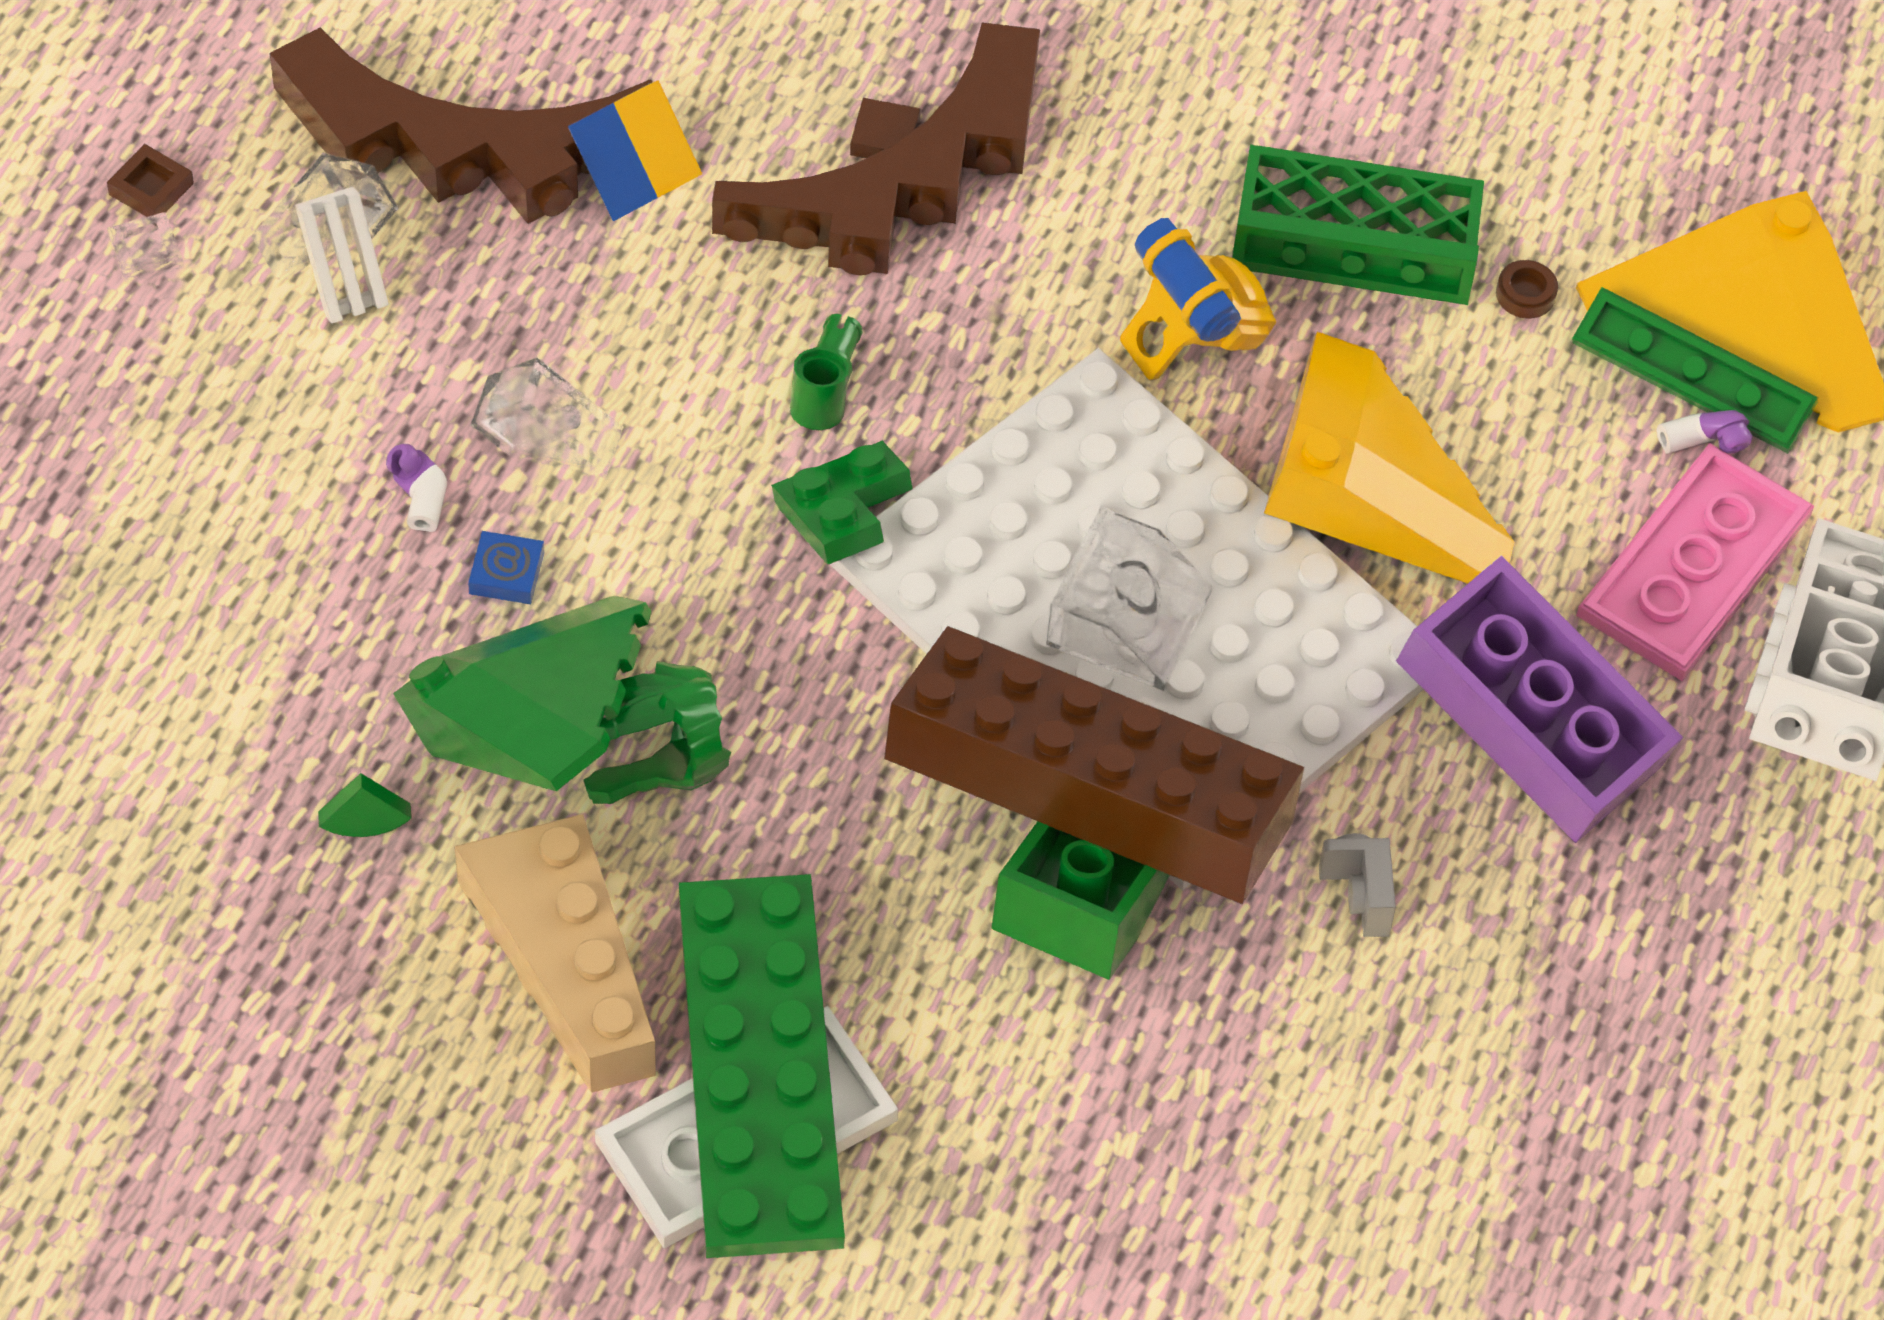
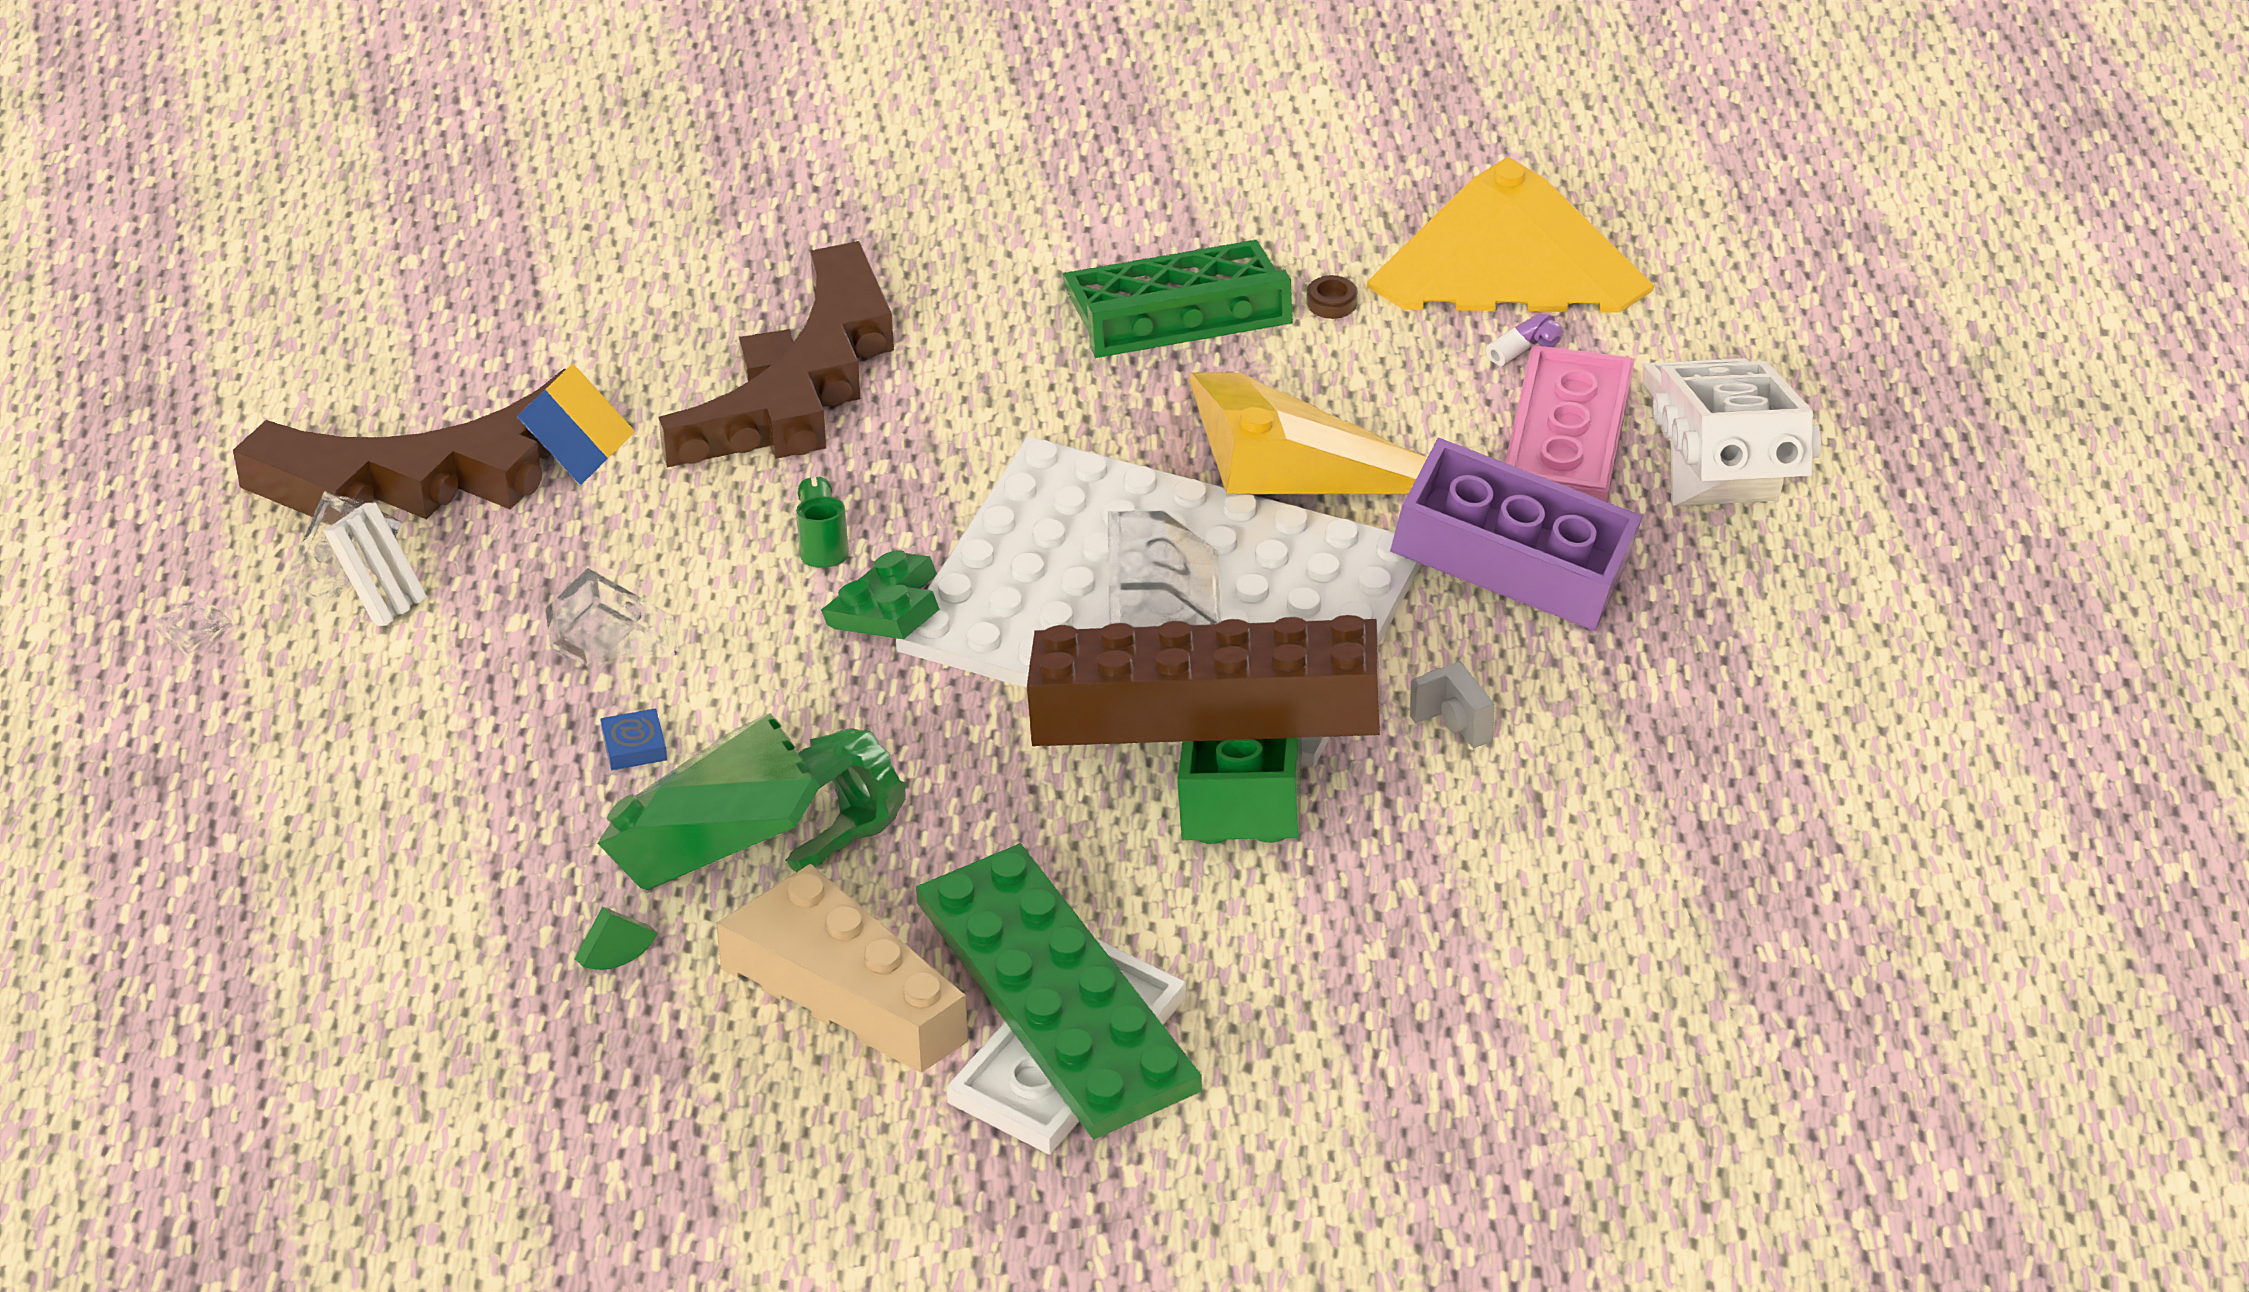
camera: 20 degrees left, 15 degrees down
(150, 182) = (171, 580): reddish brown tile -> none
(422, 482) = (526, 704): arm -> none
(1198, 297) = (1088, 366): yellow piece -> none
(1693, 368) = (1487, 301): green tile -> none

